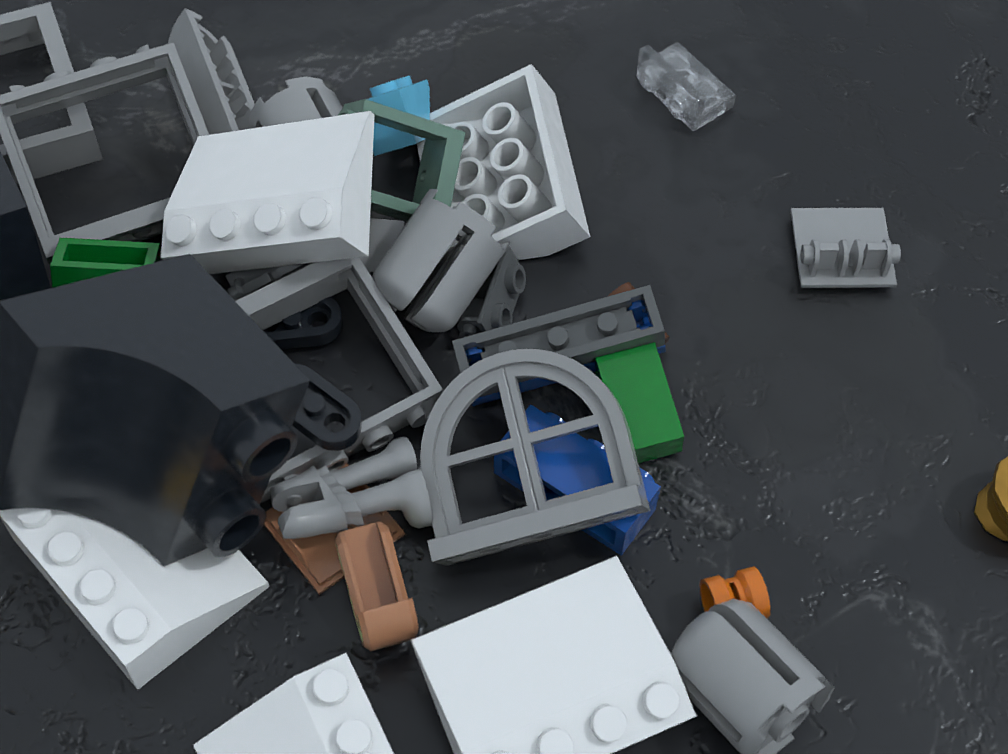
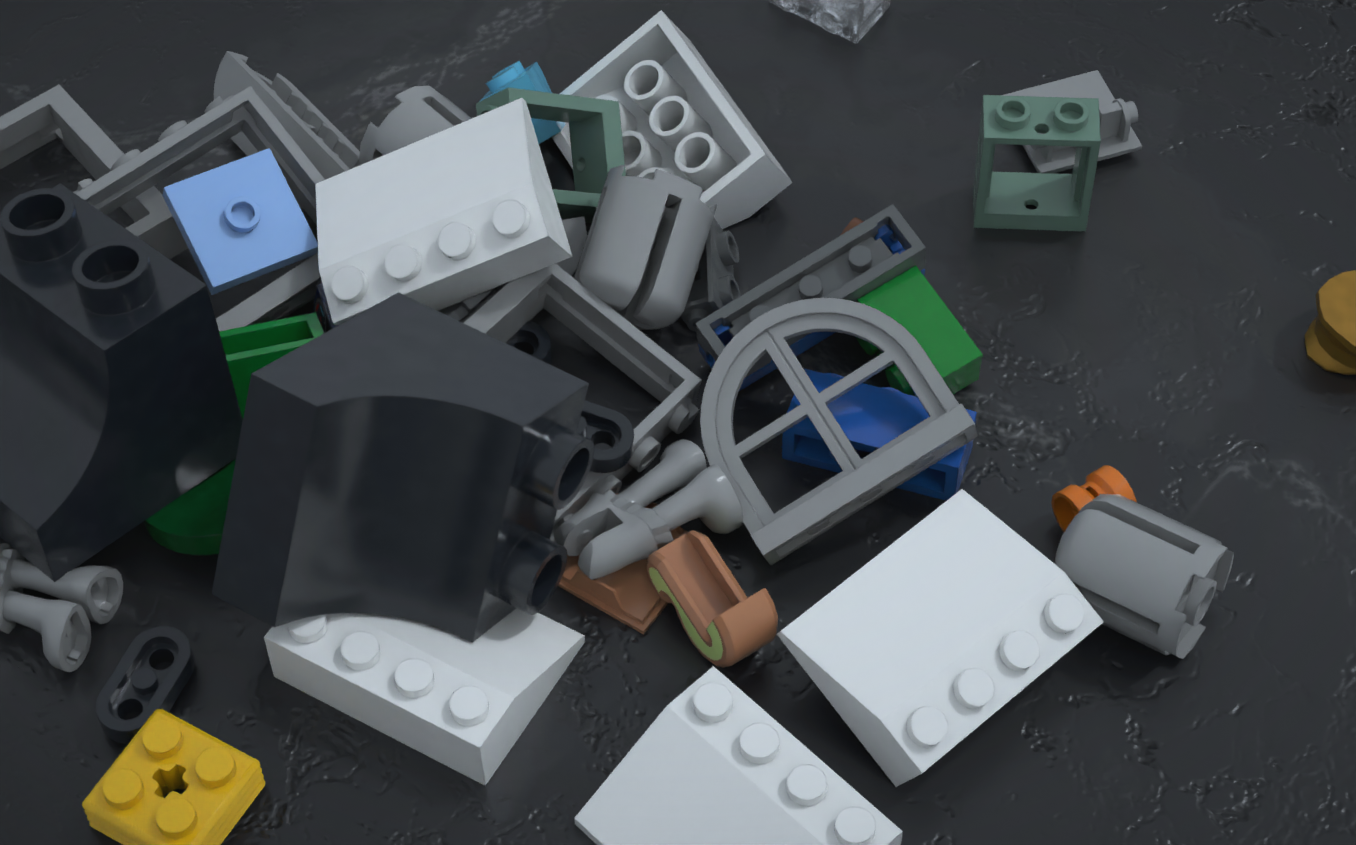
camera: 15 degrees left, 5 degrees down
(126, 151) = (240, 221): none -> light blue plate
(807, 309) = (1059, 198): none -> sand green window

